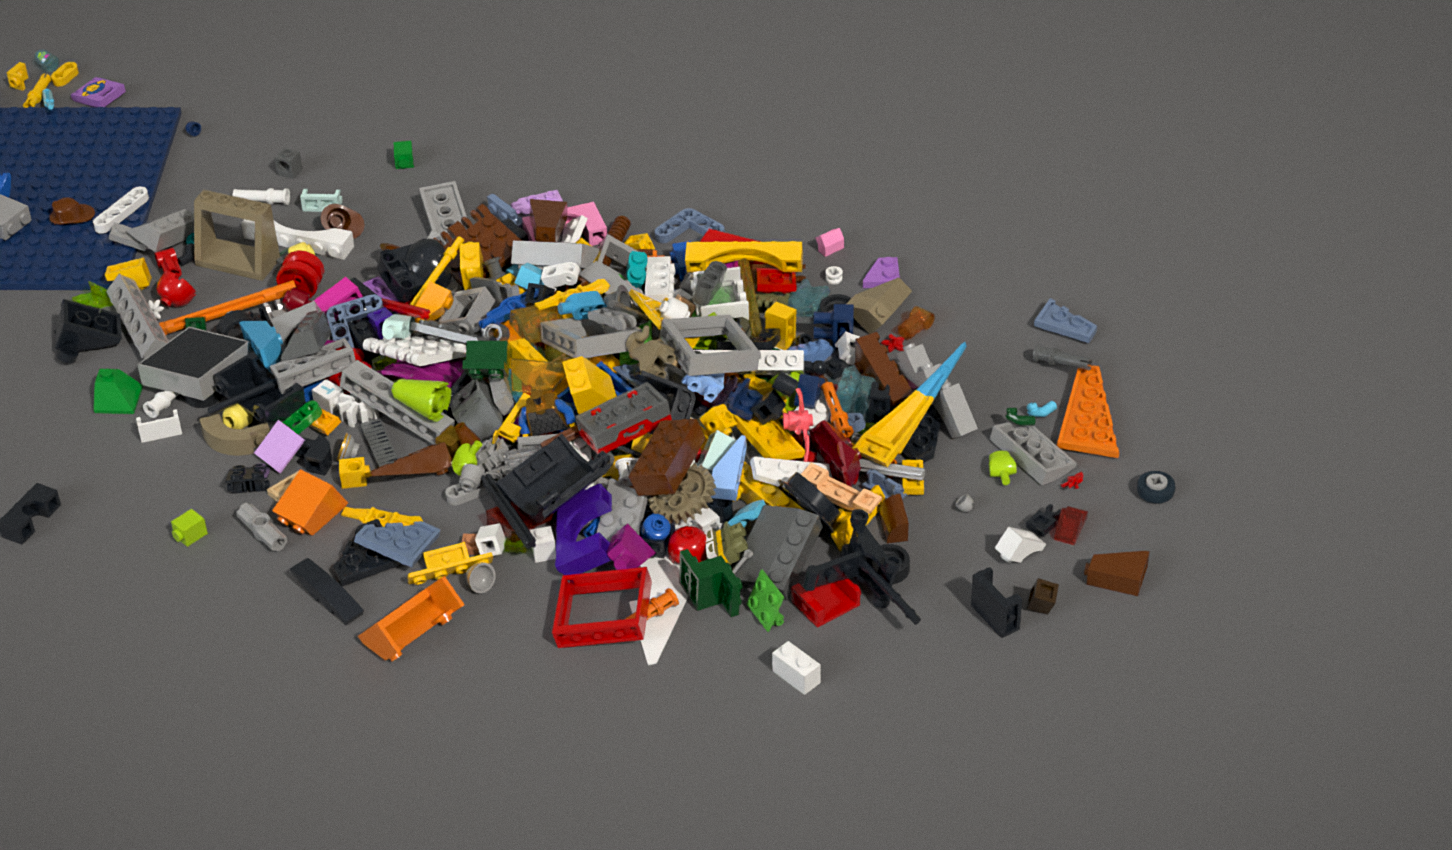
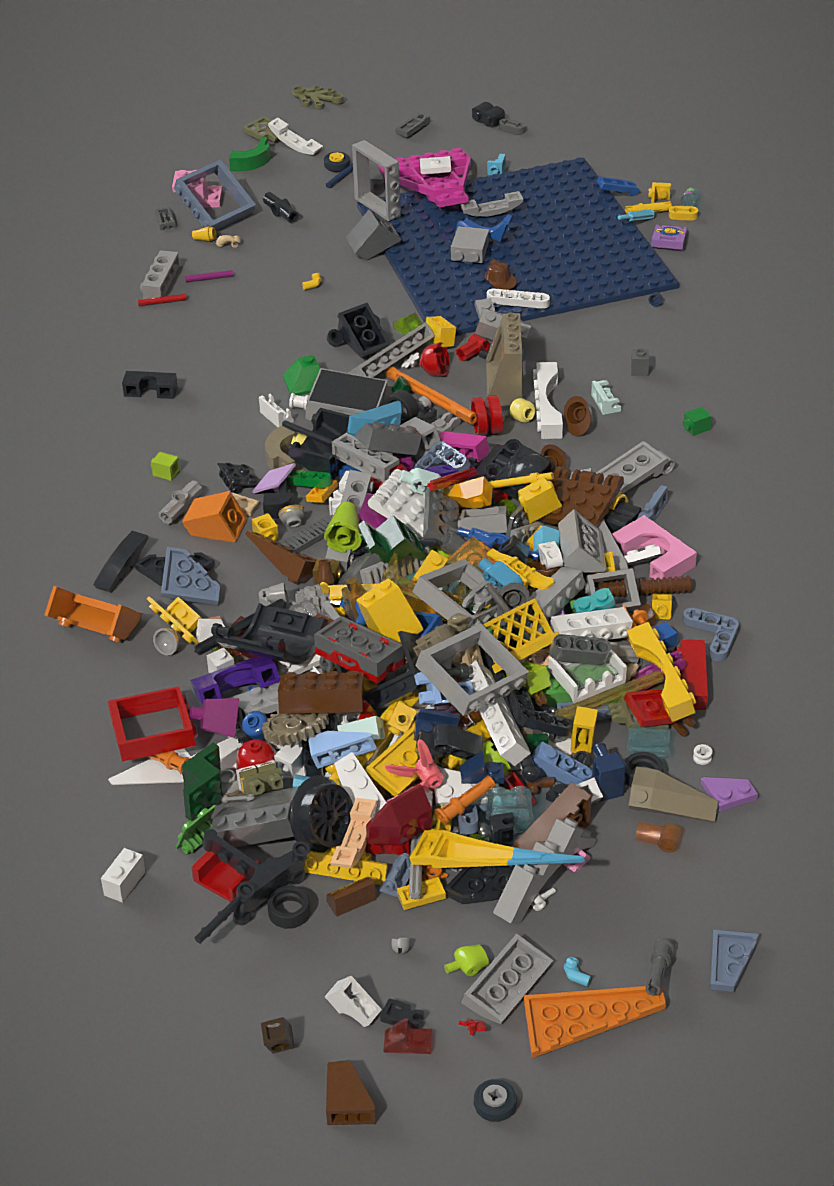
camera: 70 degrees right, 0 degrees up
(270, 195) = (592, 367): white pin -> none
(295, 298) = (458, 424): dark red head -> none
(368, 515) = (224, 566): yellow piece -> none
(465, 455) = (297, 582): lime piece -> none
(494, 268) = (551, 517): dark grey bush -> none
(522, 205) = (688, 524): lavender hinge -> none
(547, 219) = (630, 526): reddish brown slope -> none
(674, 309) = (515, 635): white head -> none
(830, 242) = (749, 736): bright pink piece -> none
(894, 343) = (623, 828): red plant -> none
(999, 612) = (248, 993): black panel -> none
(1021, 420) = (537, 952): dark green arm -> none

